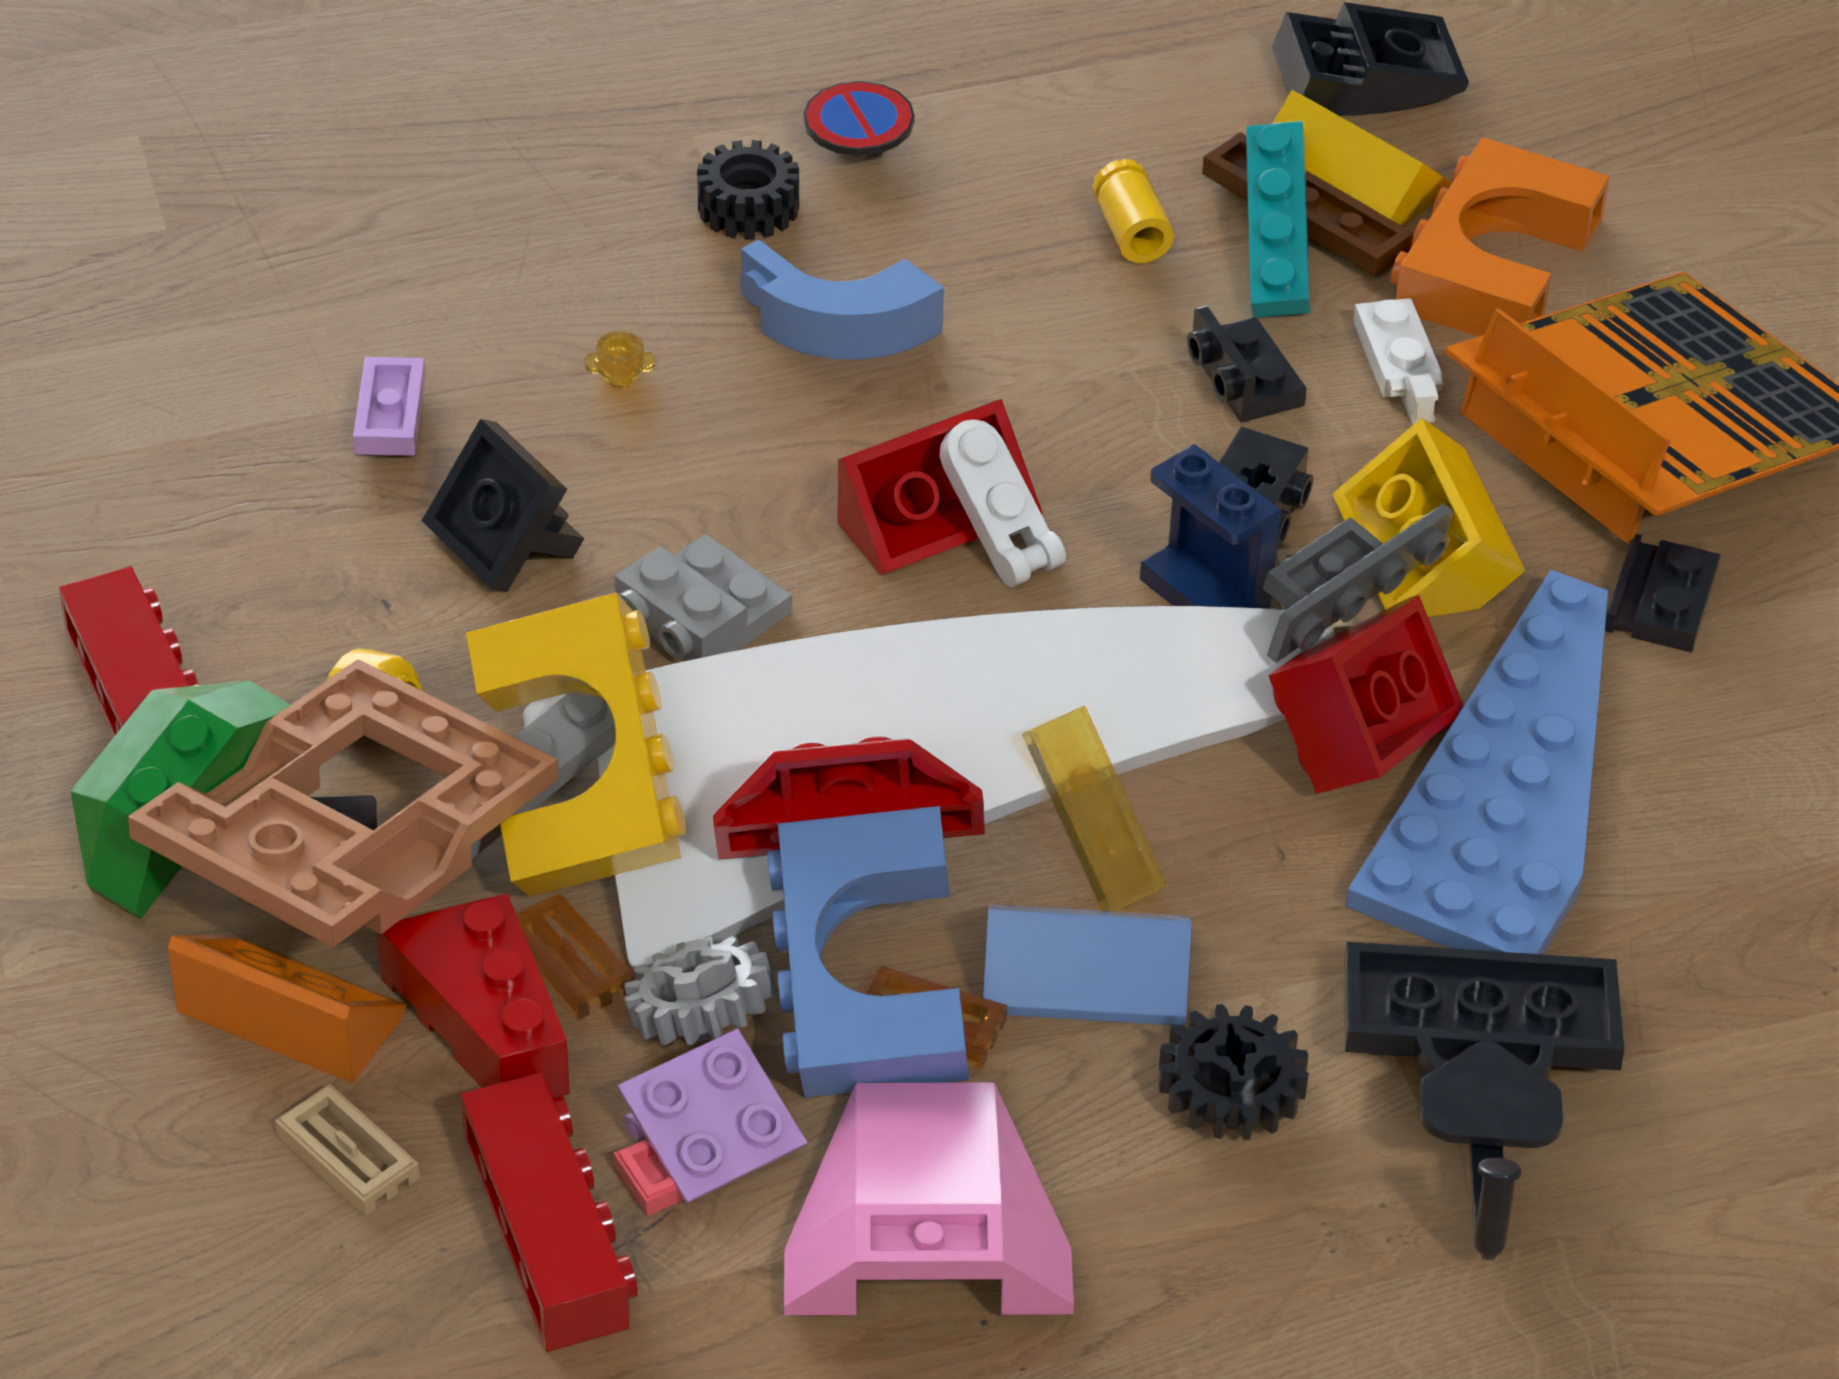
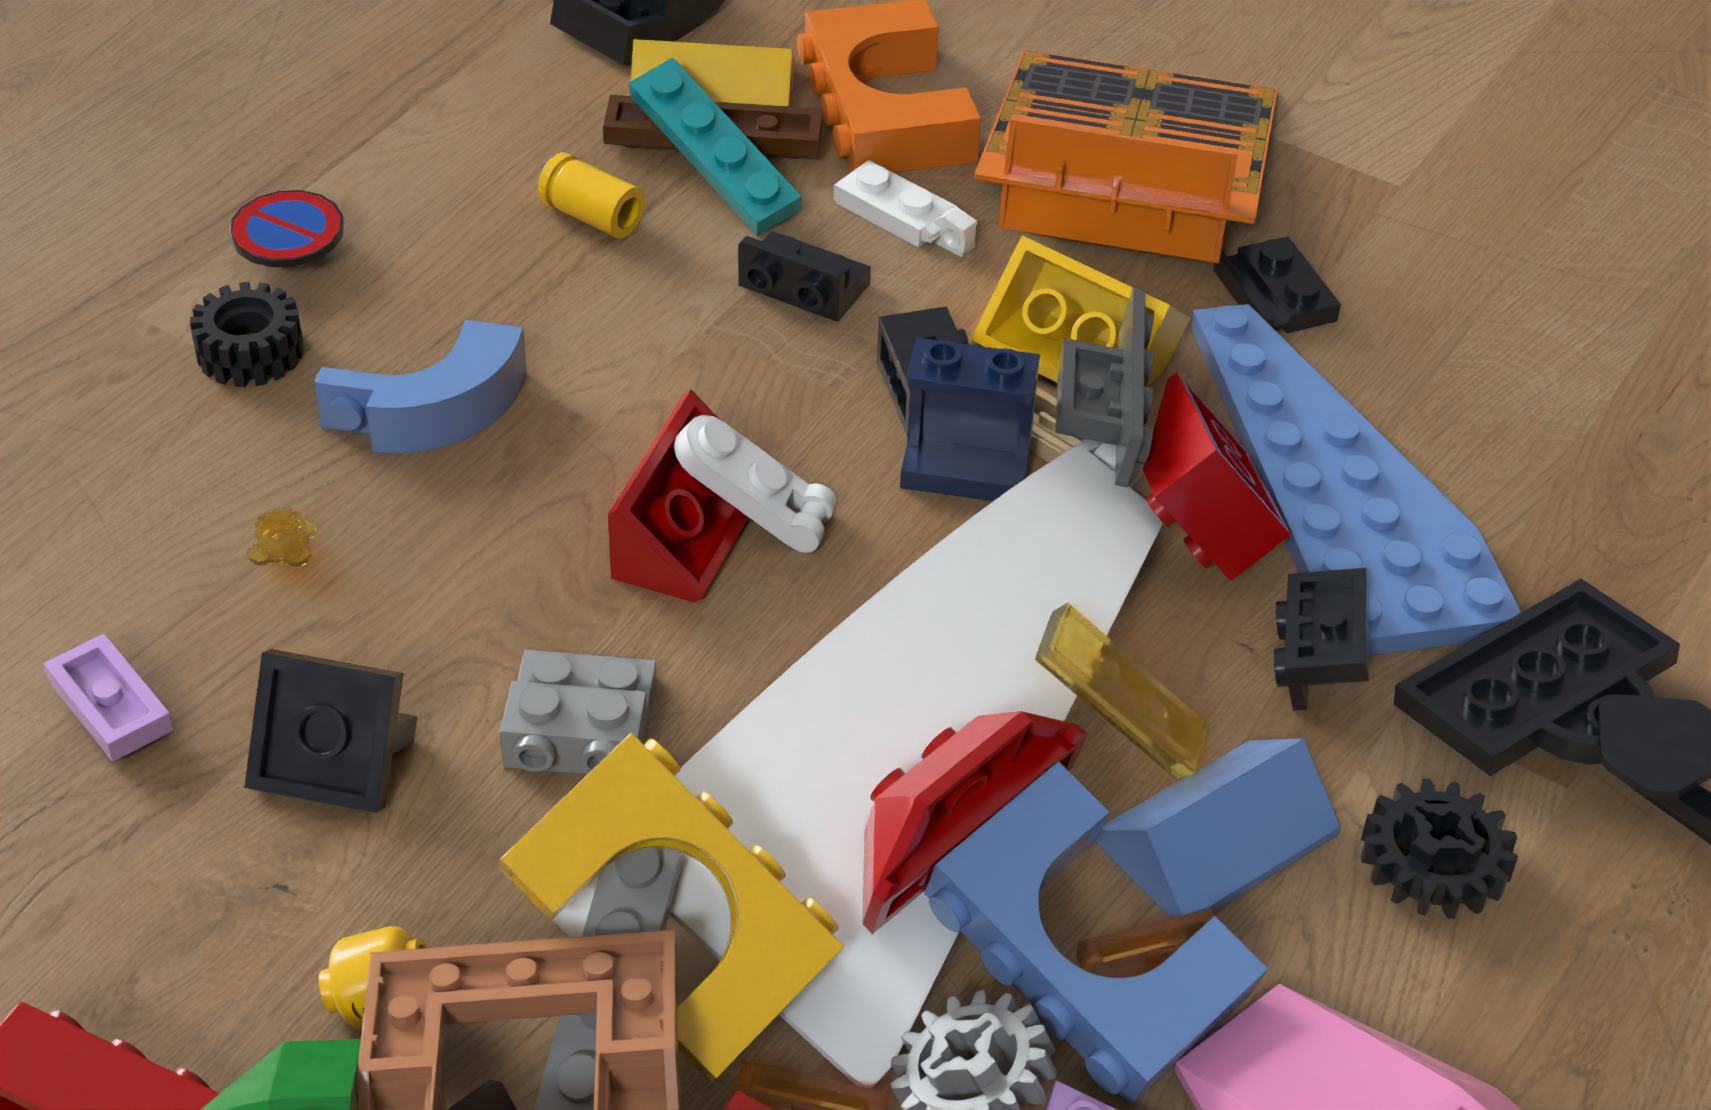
camera: 40 degrees left, 0 degrees up
(1323, 865) = (1322, 631): none -> black bracket

